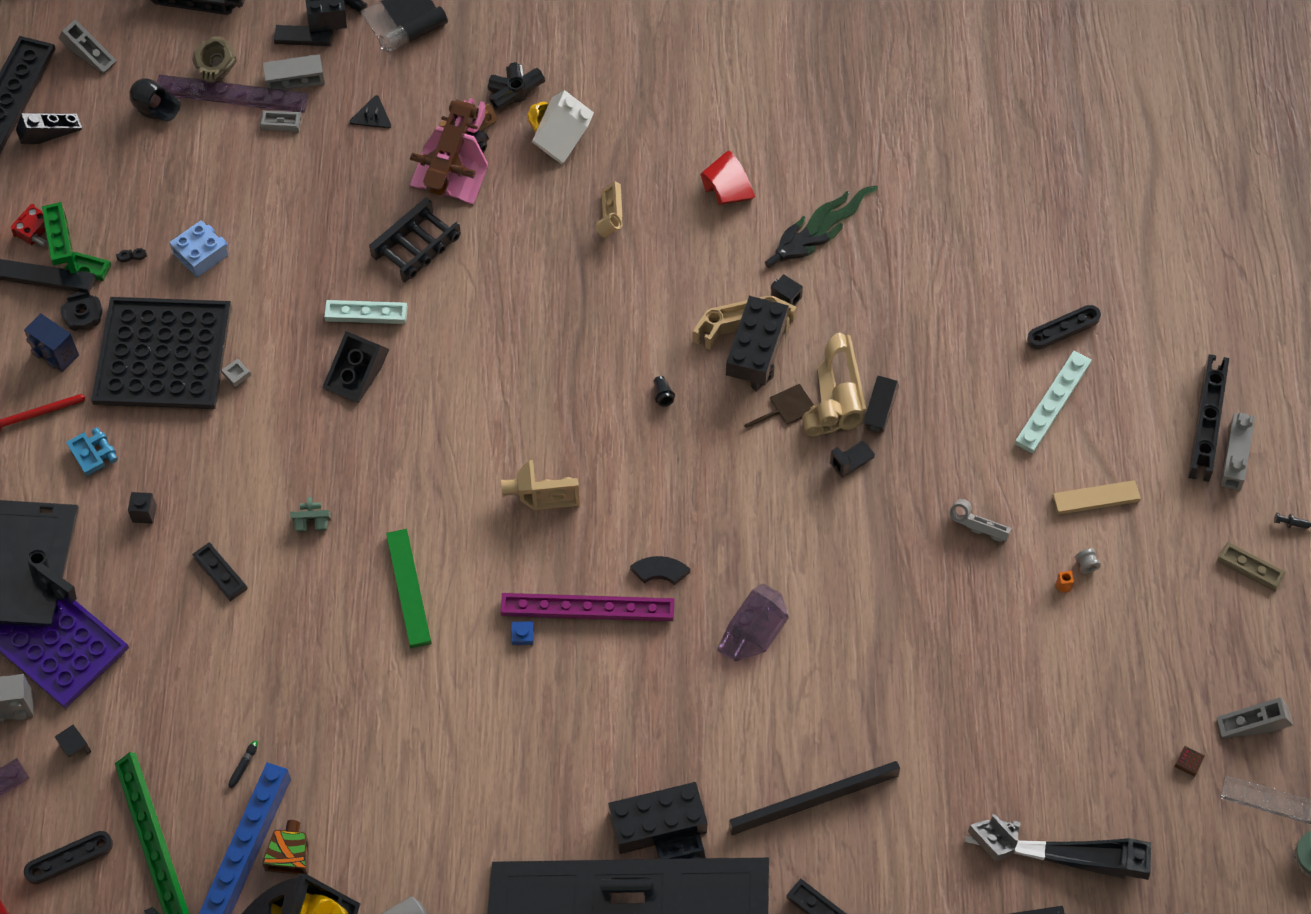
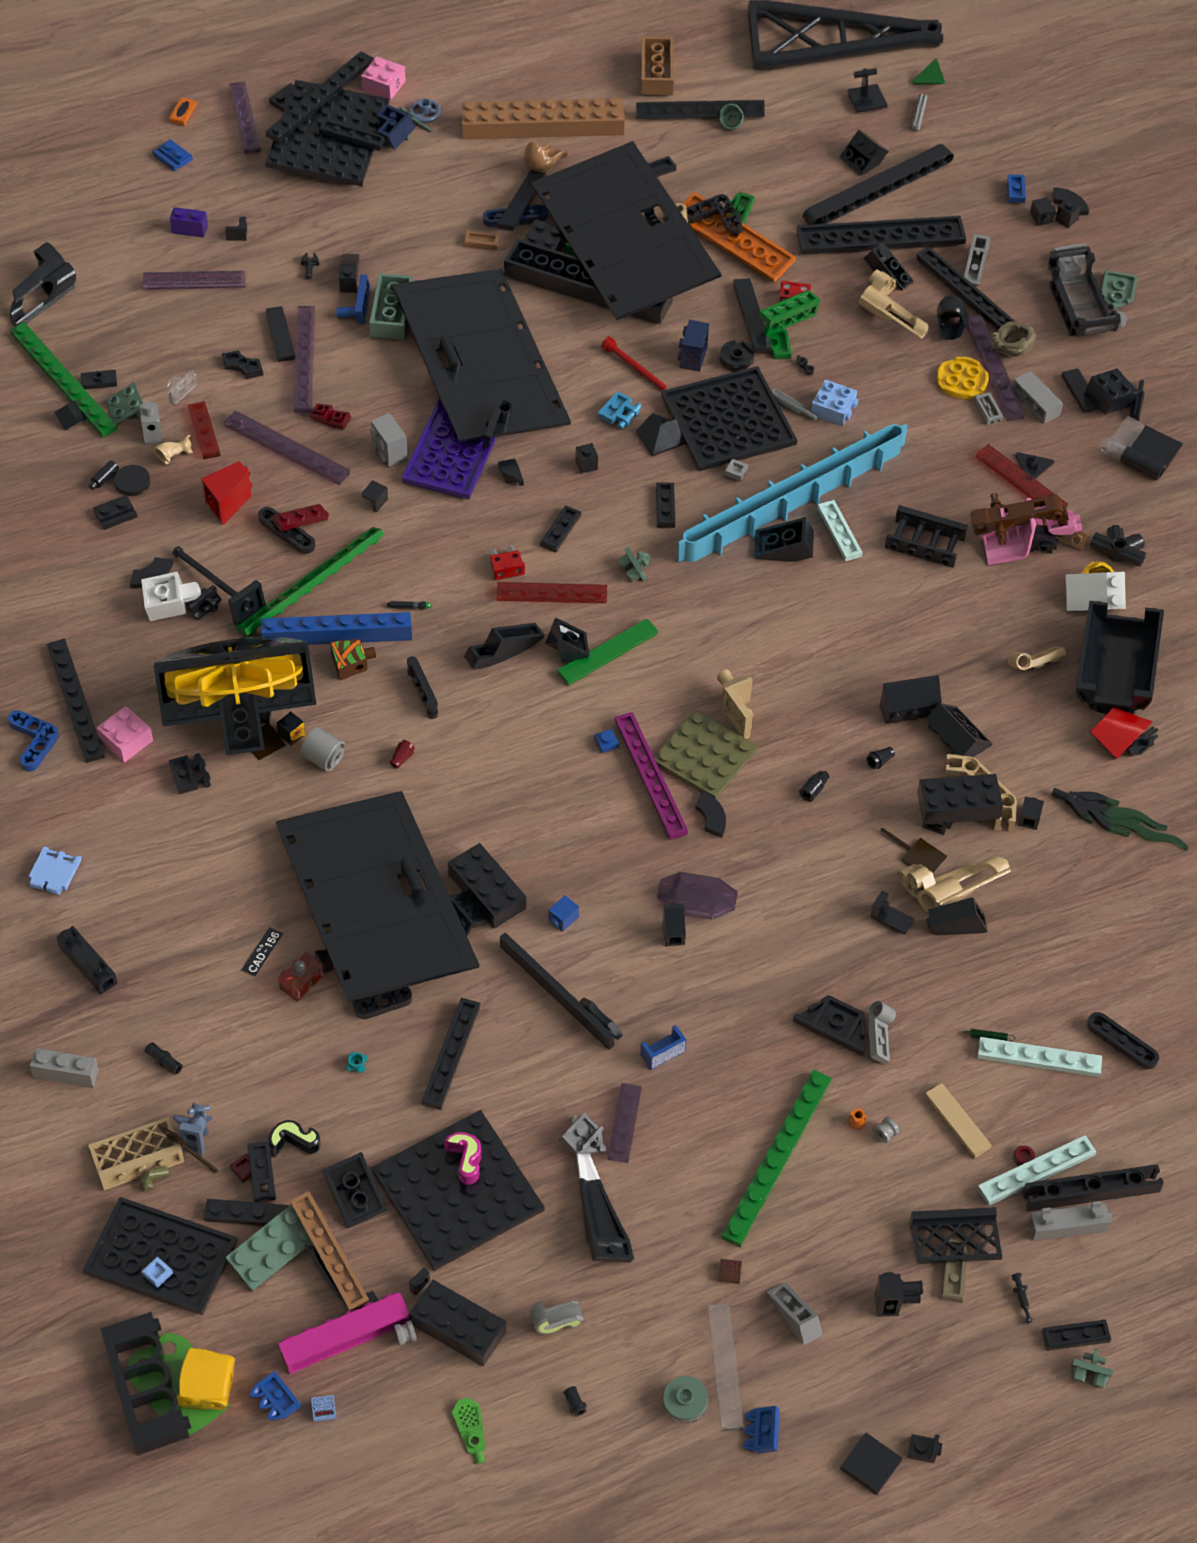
camera: 65 degrees right, 5 degrees down
(61, 835) = (300, 517): none -> dark red plate
(95, 154) = (878, 303): none -> tan panel
(113, 590) = (511, 471): none -> black slope
(119, 73) = (963, 288): none -> black plate
(146, 425) = (660, 434): none -> black slope
(177, 287) = (792, 404): none -> light grey axle
(228, 126) = (962, 378): none -> yellow tile
(242, 642) = (506, 564): none -> red piece
(243, 458) = (665, 505): none -> black tile
(281, 210) = (791, 493): none -> medium azure piece
(301, 613) = (552, 592): none -> clear red plate
(353, 685) = (503, 644): none -> black slope
(367, 787) = (425, 692): none -> black plate
(381, 619) = (568, 640): none -> black slope
(386, 131) = (1013, 474): none -> clear red tile
(445, 843) = (402, 753): none -> dark red cone
(583, 547) = (705, 754): none -> olive plate
(613, 335) = (910, 698): none -> black slope
(654, 138) = (1119, 659): none -> black cylinder
(665, 312) = (957, 730): none -> black slope
(669, 462) = (814, 785): none -> black hinge
(723, 755) = (563, 913): none -> blue brick
(747, 166) = (1143, 742): none -> black piece
(786, 655) = (674, 924): none -> black slope
(865, 766) = (607, 1022): none -> black tile
(922, 722) = (663, 1049): none -> blue panel
(952, 555) = (836, 1022): none -> black wing
(990, 793) = (624, 1123): none -> clear purple plate
(1013, 434) = (988, 1034): none -> dark green piece
(1080, 670) = (776, 1158): none -> green plate
(1153, 459) = (1023, 1155): none -> dark red tile
(1174, 455) = (1036, 1170): none -> light aqua plate
(1205, 540) = (950, 1219): none -> black fence
(1271, 625) = (893, 1292): none -> black brick

